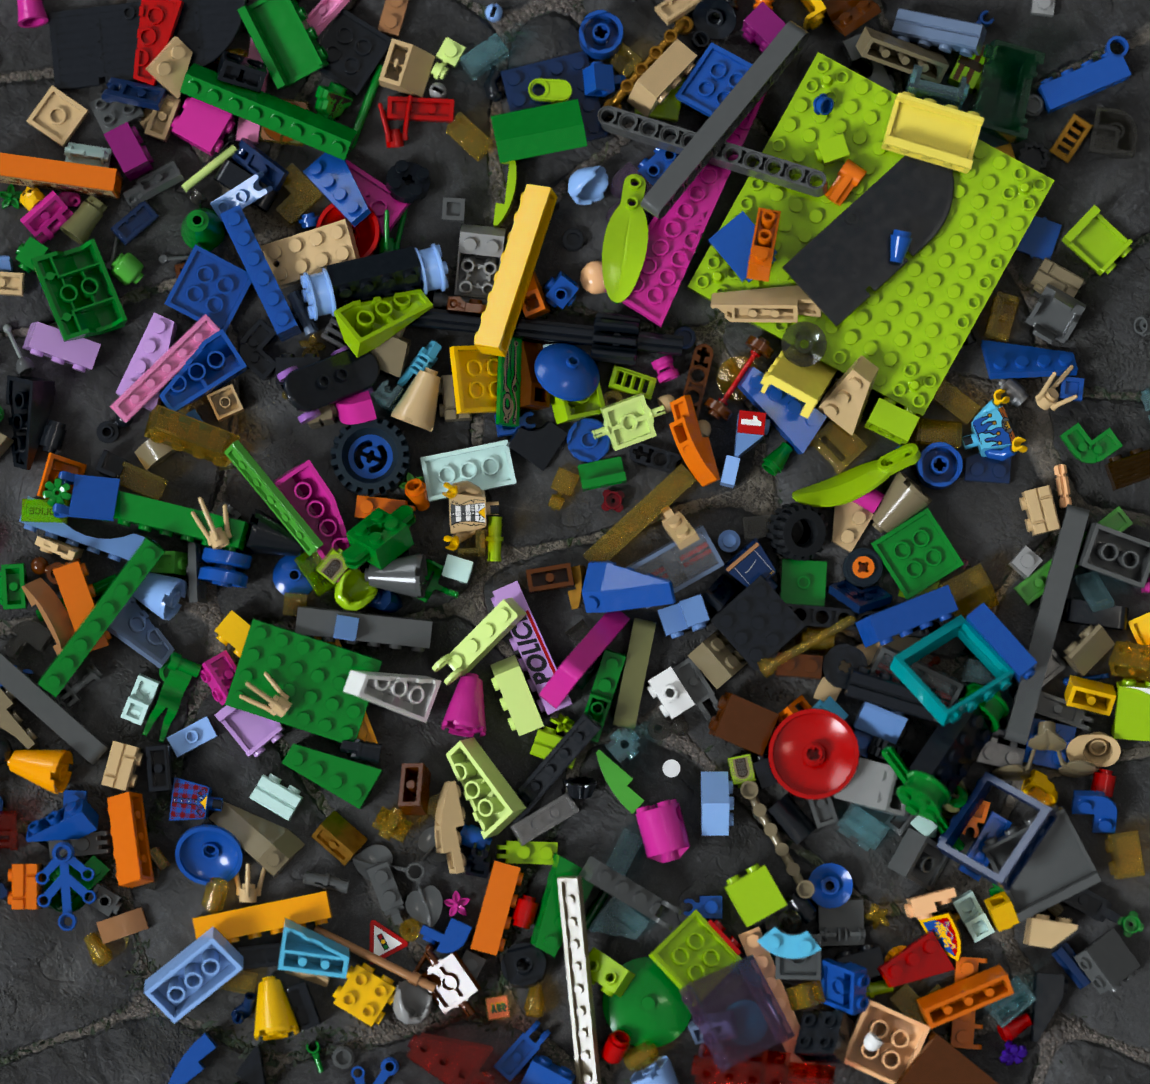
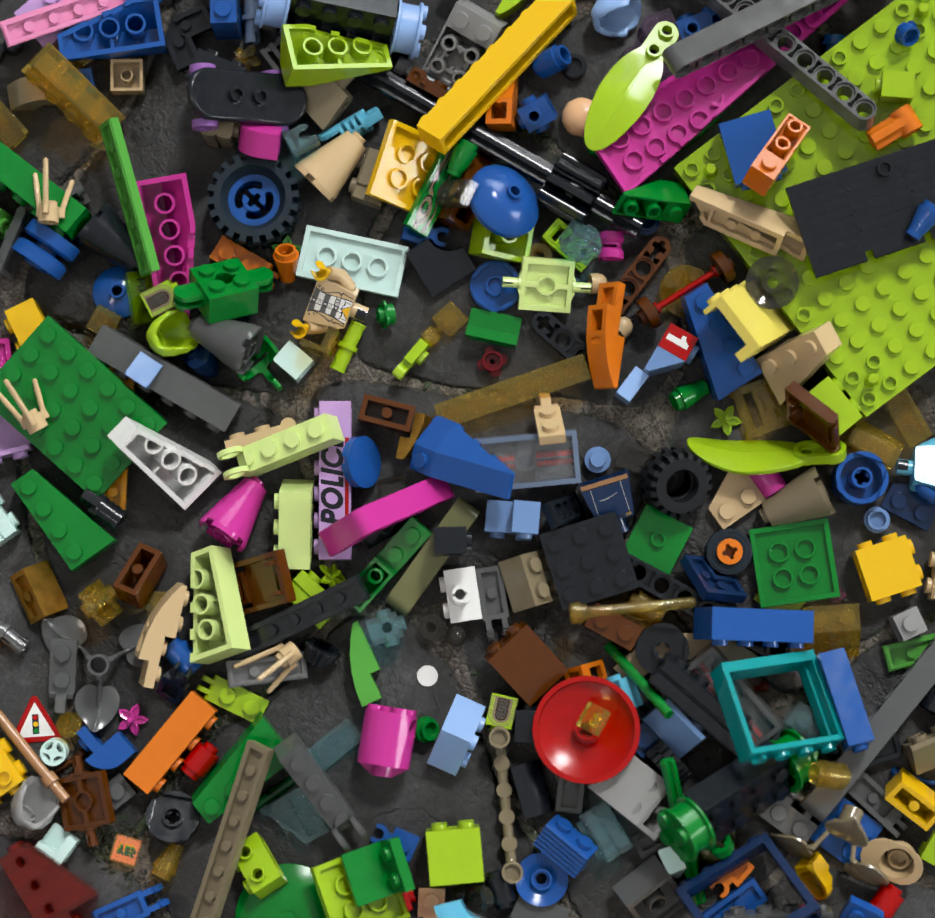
camera: 20 degrees right, 0 degrees up
(408, 960) = (50, 754): none -> light aqua wheel
(443, 649) = (261, 432): none -> tan plate
(443, 1024) = (58, 843): none -> light aqua panel
(510, 753) = (265, 581): none -> reddish brown container
(513, 500) = (385, 314): none -> green plate
(518, 352) = (461, 157): none -> green cone
(527, 382) = (455, 193): none -> clear smoke plate
(547, 624) = (361, 462): none -> blue tile
(552, 521) = (415, 355): none -> lime plate
(554, 244) = (551, 61): none -> blue brick
(556, 802) = (286, 656): none -> tan plant
(641, 377) = (580, 242): none -> clear light blue brick
(645, 654) = (452, 541): none -> black brick
(685, 319) = (655, 201): none -> green slope
(690, 809) = (426, 729): none -> green plate
(701, 934) = (377, 871): none -> green bracket
(767, 131) = (831, 40): none -> blue plate
(814, 465) = (725, 419): none -> lime plant
(815, 743) = (593, 719): none -> clear yellow plate
(837, 851) = (565, 845): none -> blue brick
(840, 699) = (639, 680): none -> green bar
(882, 435) = (814, 419): none -> reddish brown container
(966, 491) = (876, 519): none -> medium blue plate
(991, 526) = (887, 568): none -> yellow brick
(1015, 705) = (829, 775): none -> clear yellow brick

